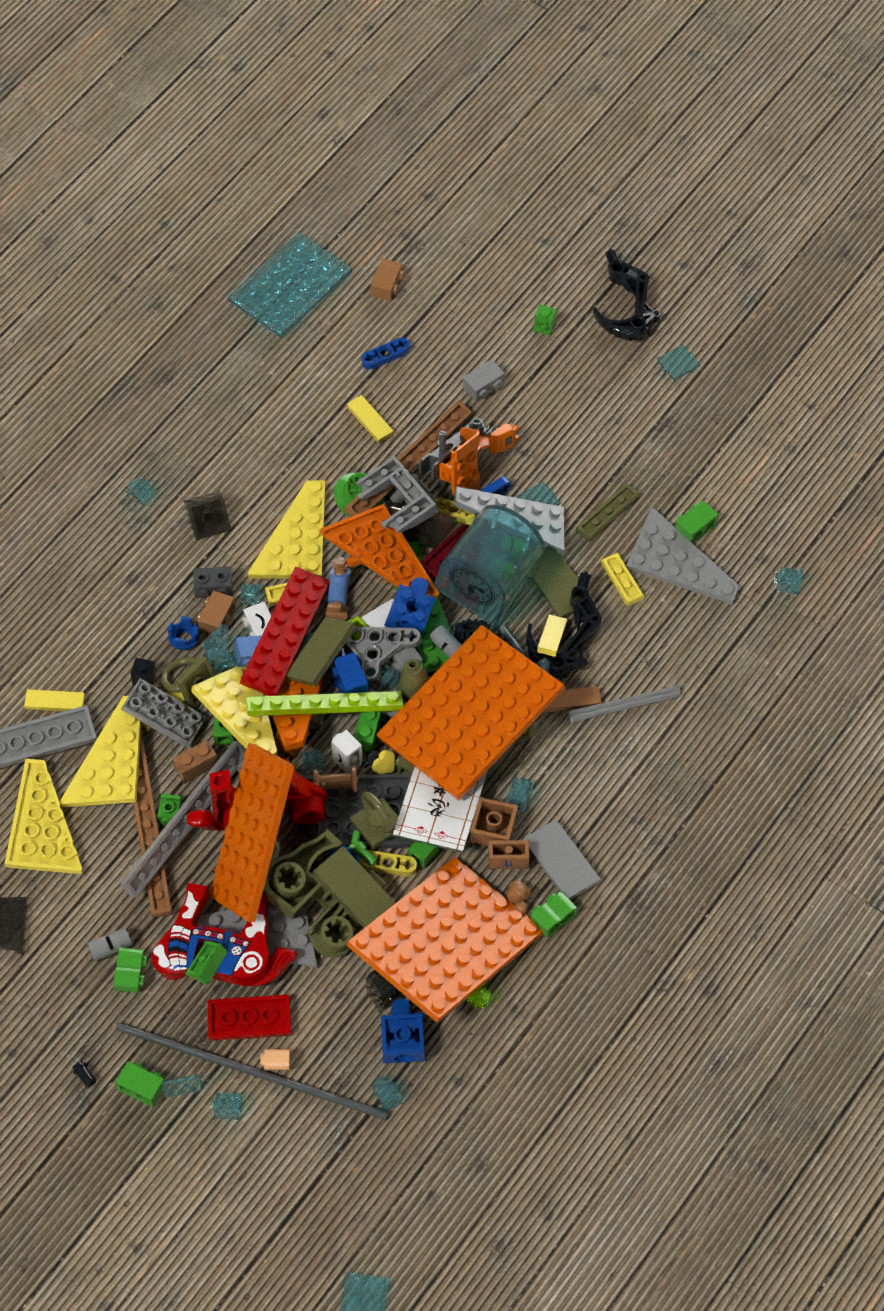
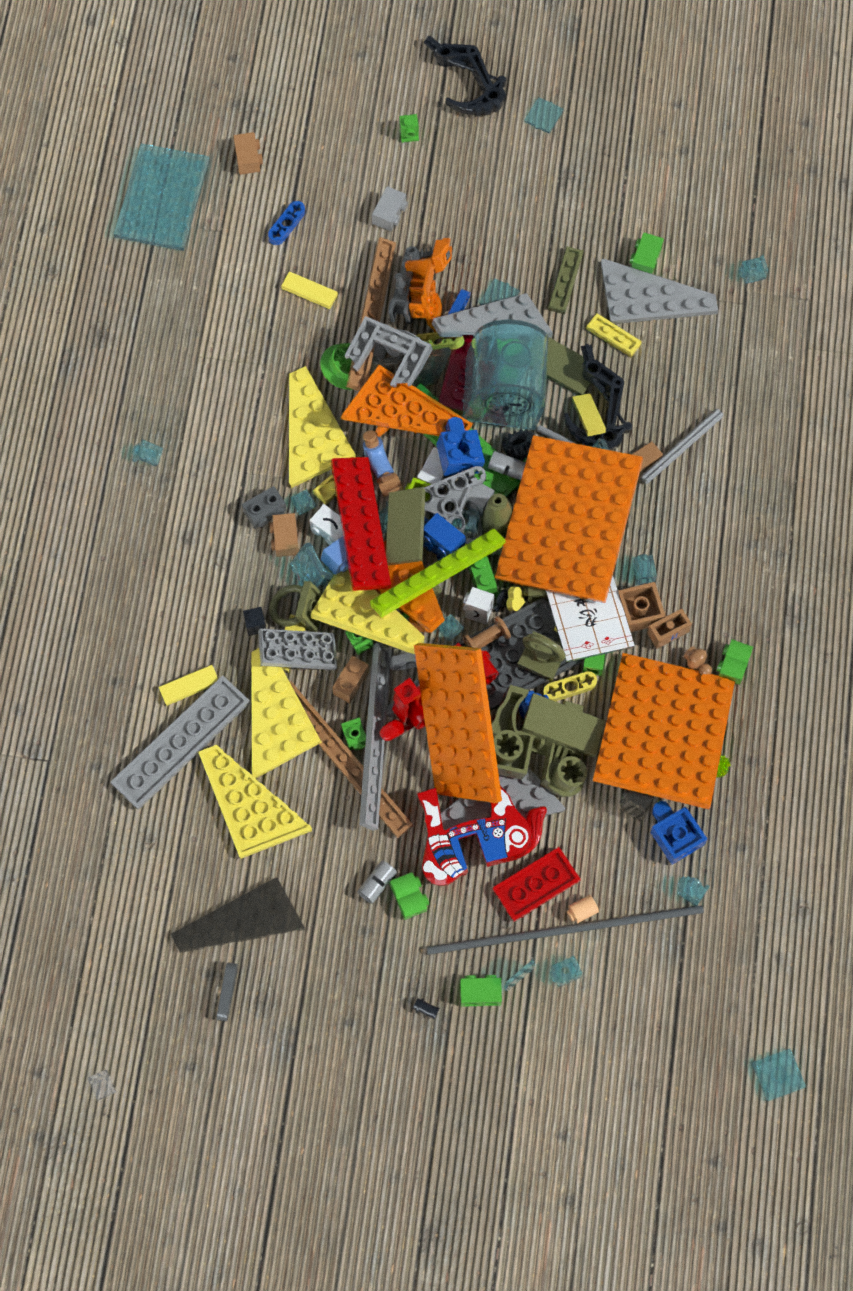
camera: 30 degrees left, 10 degrees up
(184, 626) = (264, 559): blue piece -> none
(207, 515) = (221, 447): clear smoke slope -> none
(207, 962) = (479, 856): bright green slope -> none
(360, 848) = (541, 686): bright green piece -> none
(561, 860) = (713, 610): light grey tile -> none

